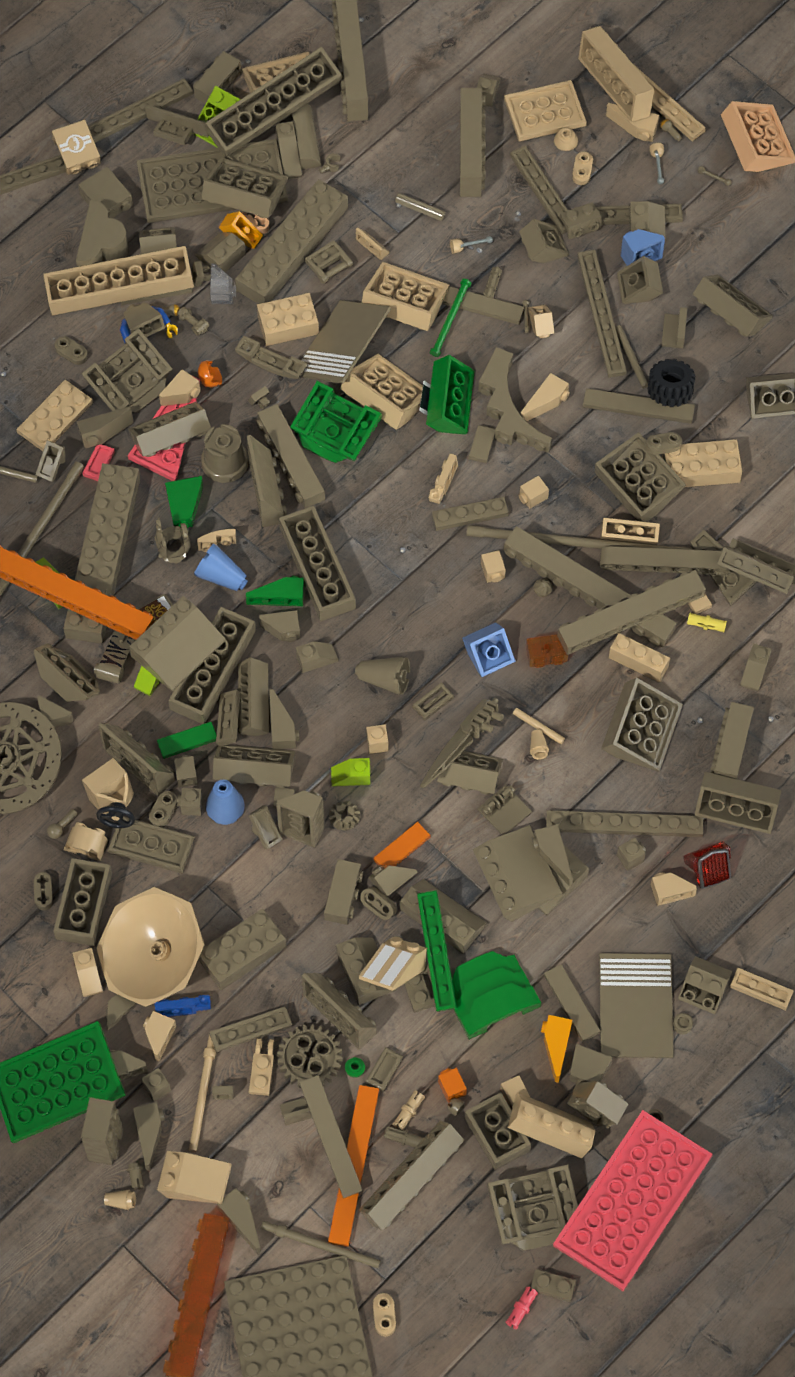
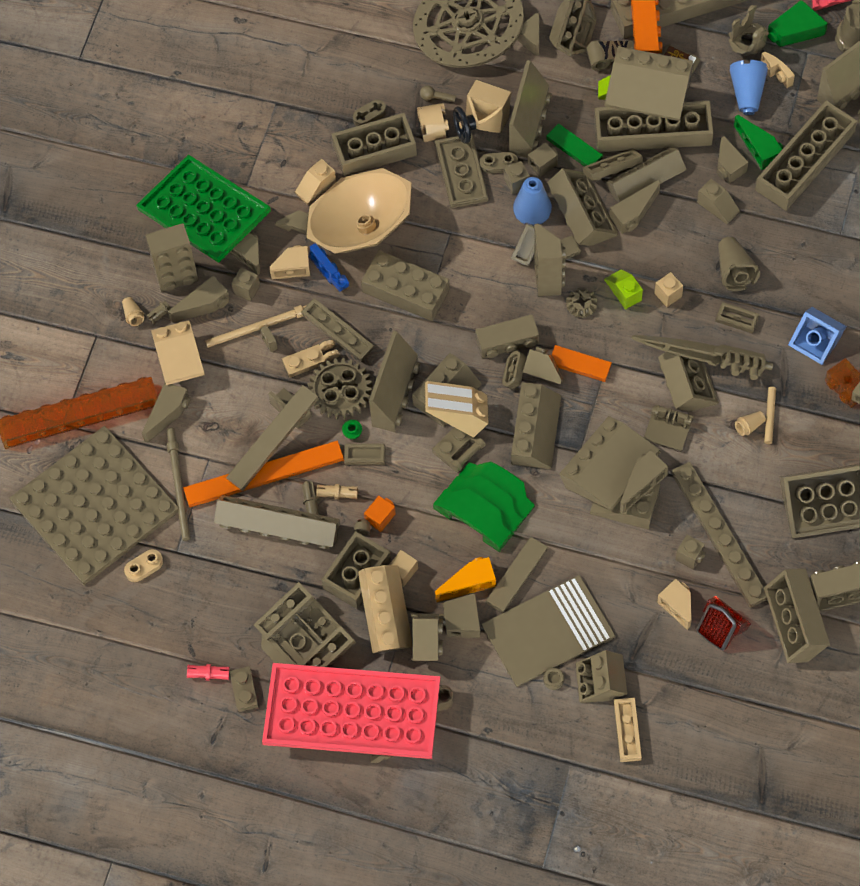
camera: 65 degrees right, 0 degrees up
(436, 951) = (492, 434): green tile -> none

